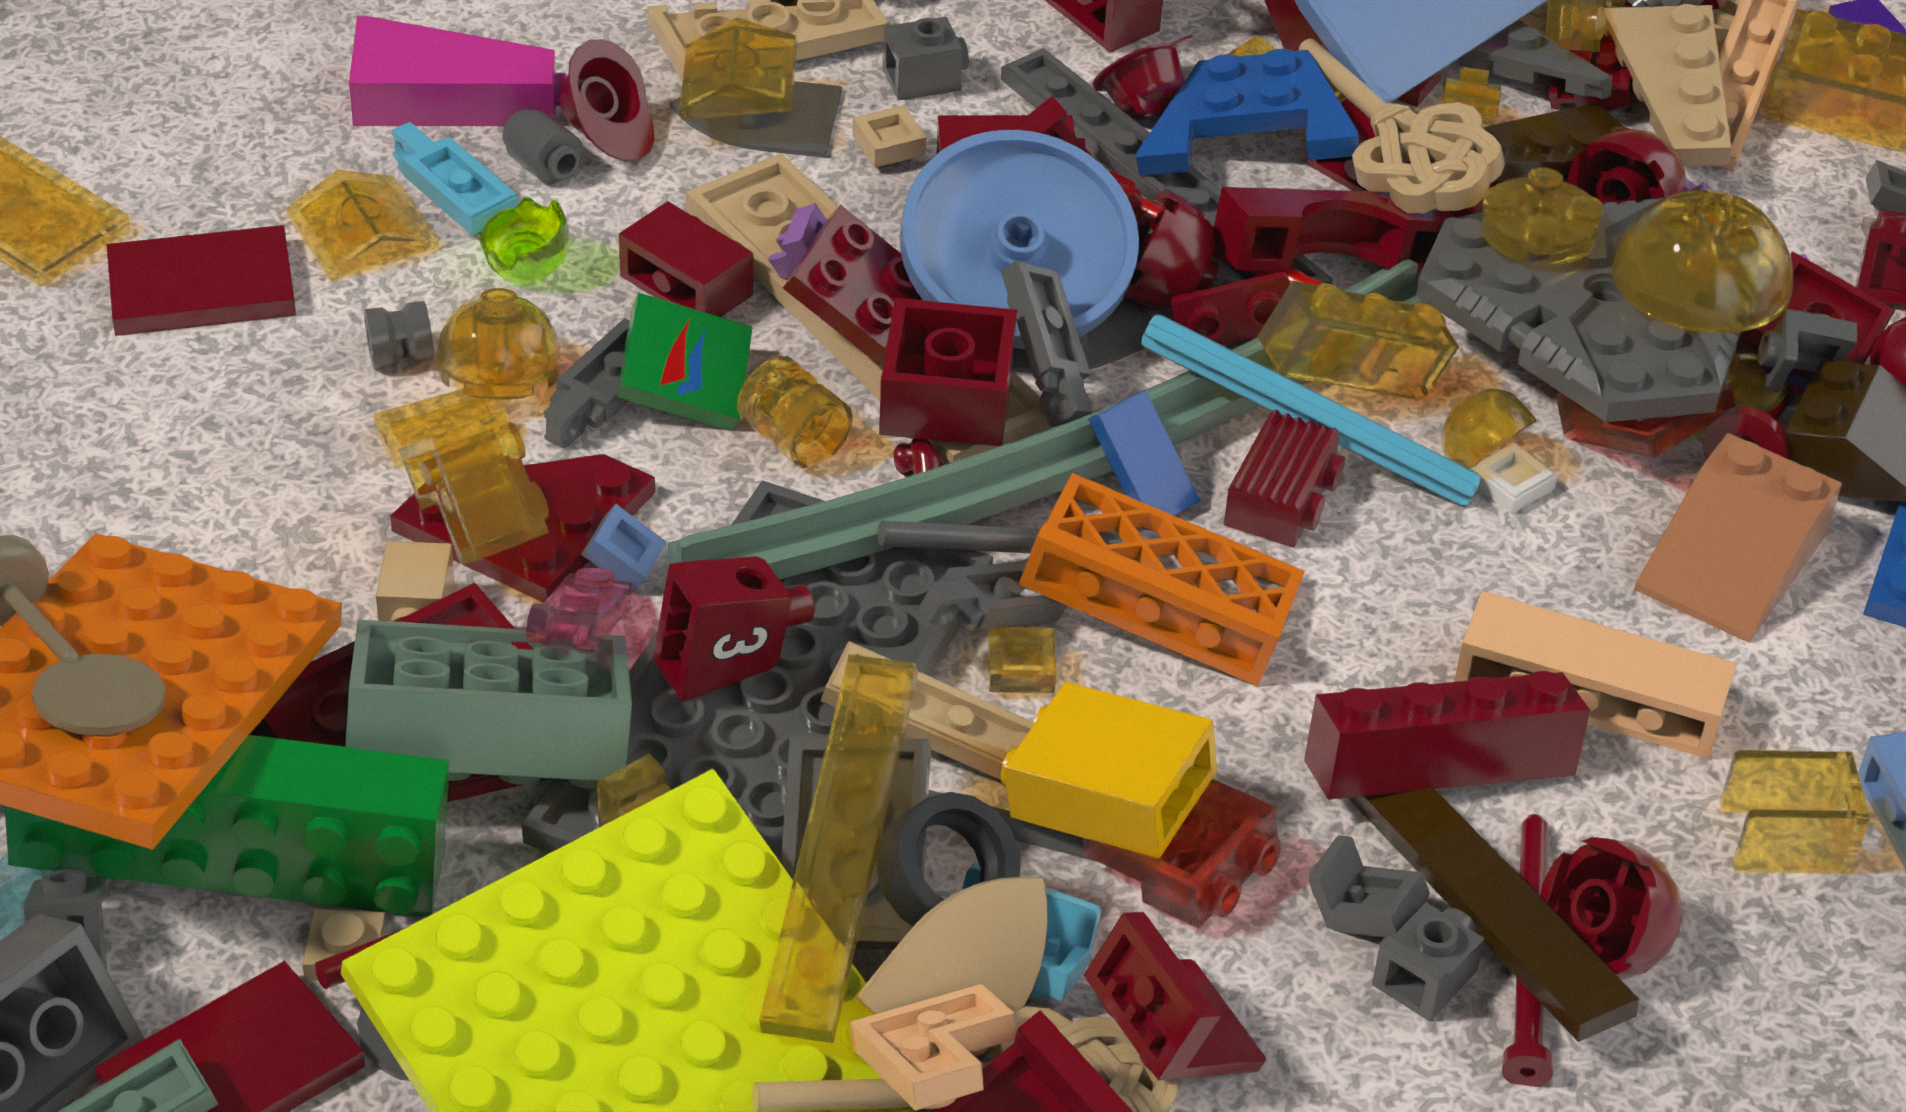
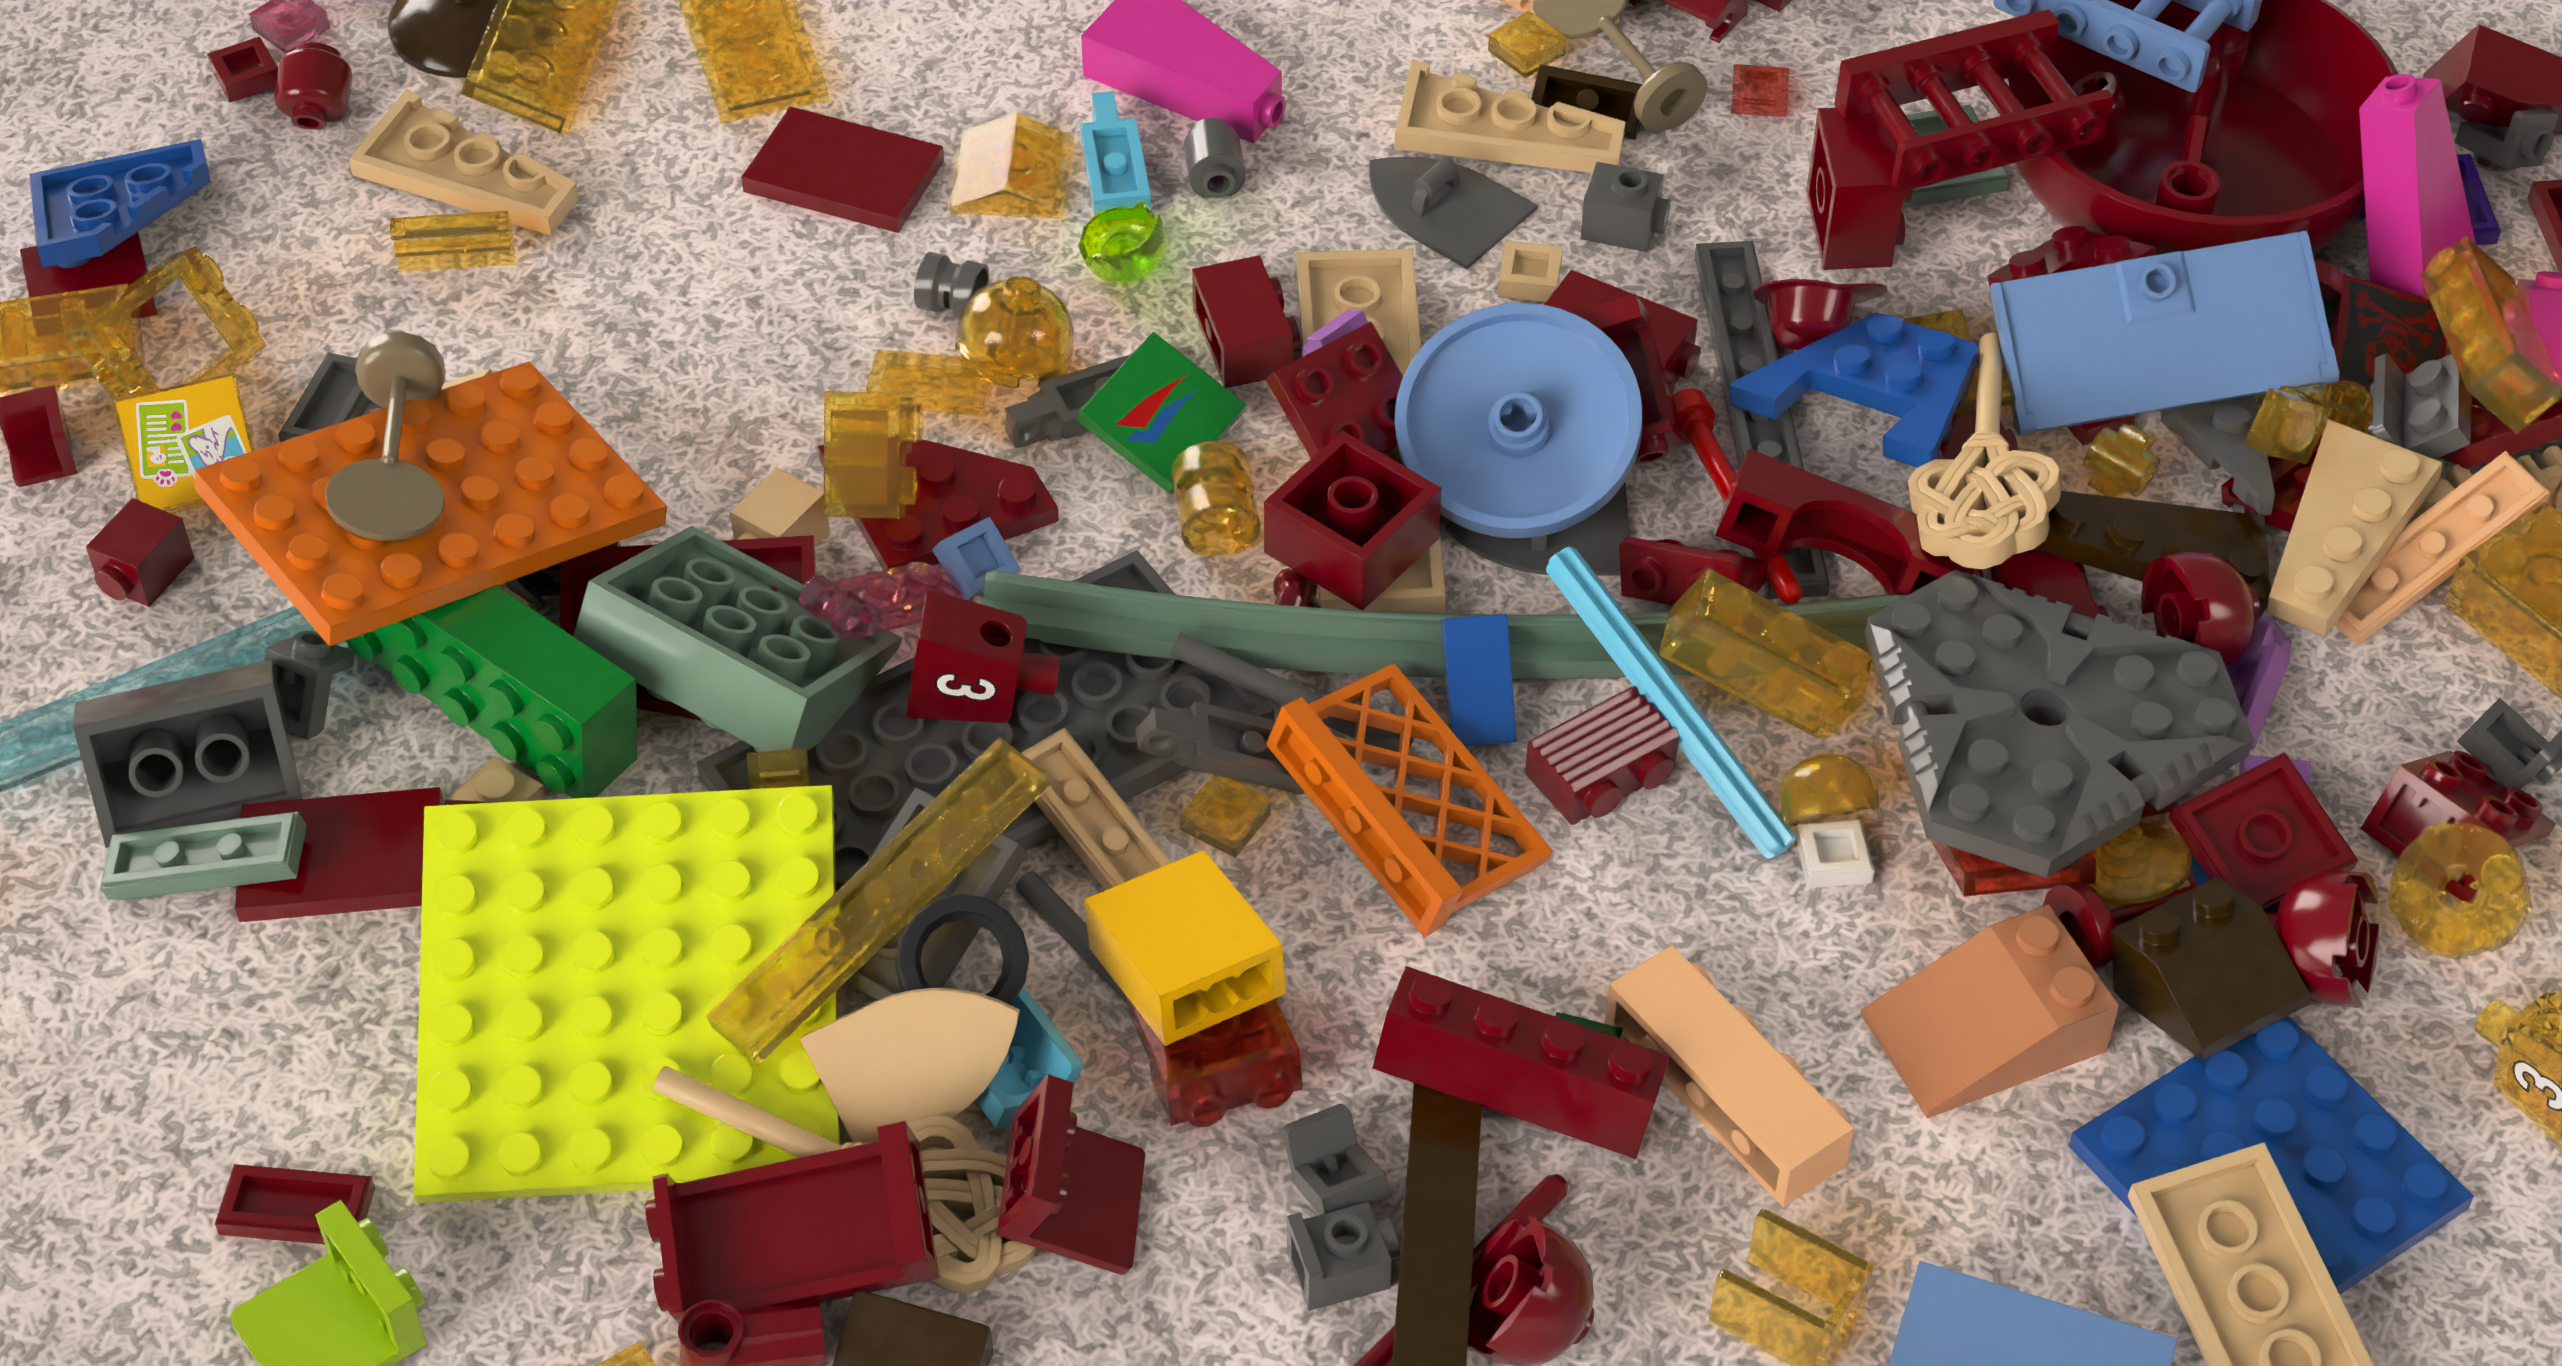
camera: 35 degrees right, 5 degrees up
(608, 100) = (1295, 139): dark red piece -> none
(738, 72) = (1429, 156): clear yellow slope -> none
(932, 1044) = (814, 1096): light nougat plate -> none
(1049, 340) = (1467, 527): dark grey hinge -> none
(1172, 253) = (1674, 494): dark red cylinder -> none
(1541, 218) = (2046, 585): clear yellow plate -> none
(1705, 263) = (2146, 728): clear yellow piece -> none
(1802, 342) = (2205, 848): dark grey bracket -> none

